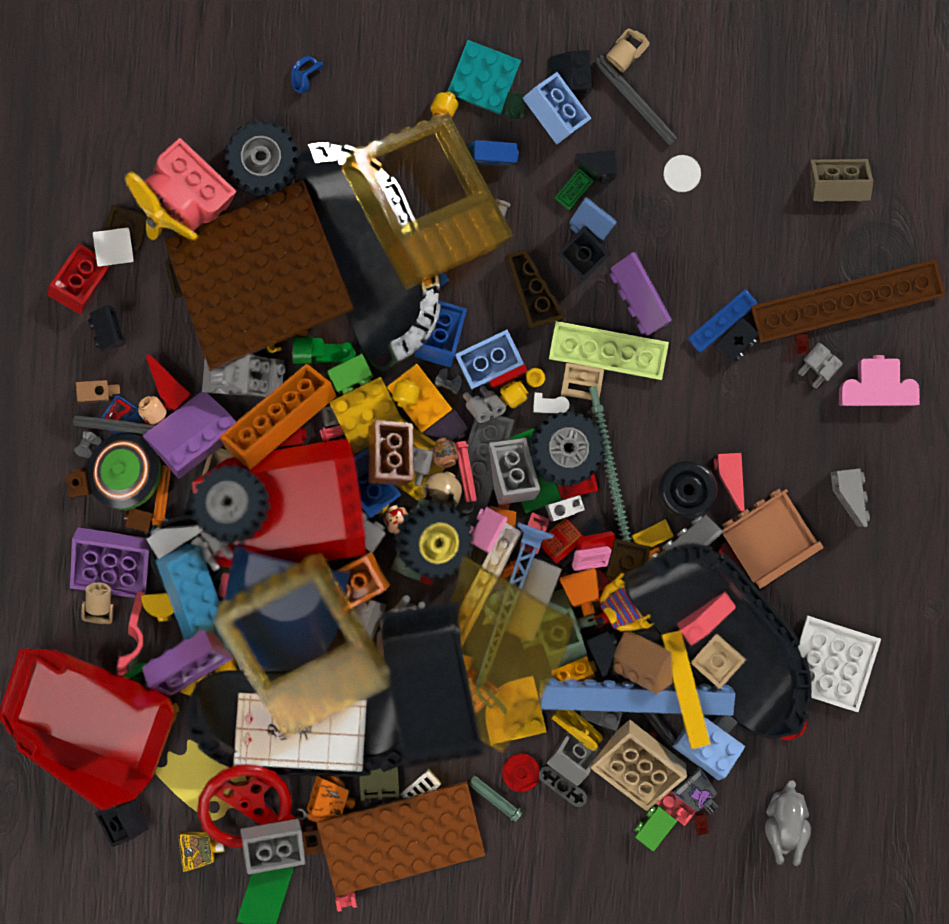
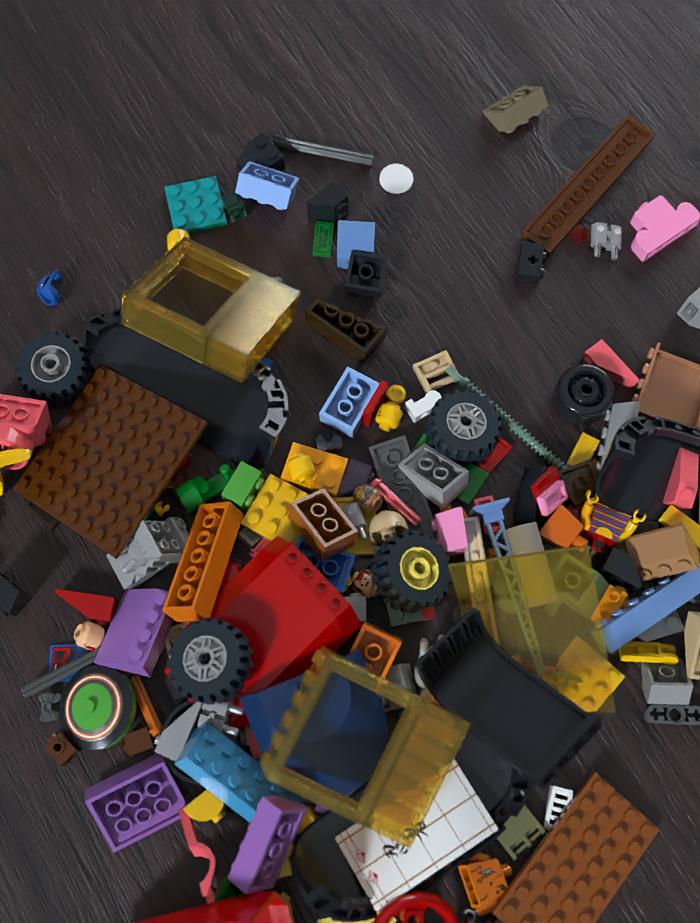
camera: 30 degrees left, 15 degrees down
(87, 394) = (19, 657): medium nougat torso -> none
(98, 603) = (147, 848): tan piece -> none
(443, 341) = (302, 412): blue slope -> none
(485, 406) = (372, 439): light grey piece -> none
(493, 153) = (242, 248): blue slope -> none
(495, 798) = (628, 769): sand green axle -> none
(521, 772) = (630, 729): red tile -> none
(563, 541) = (519, 503): red tile -> none
(564, 508) = (496, 478): white leg -> none
(608, 350) = (438, 334): yellowish green plate -> none
(624, 53) = (291, 120): tan piece -> none
(640, 295) = (433, 272): medium lavender slope -> none
(722, 321) = (507, 259): blue tile -> none

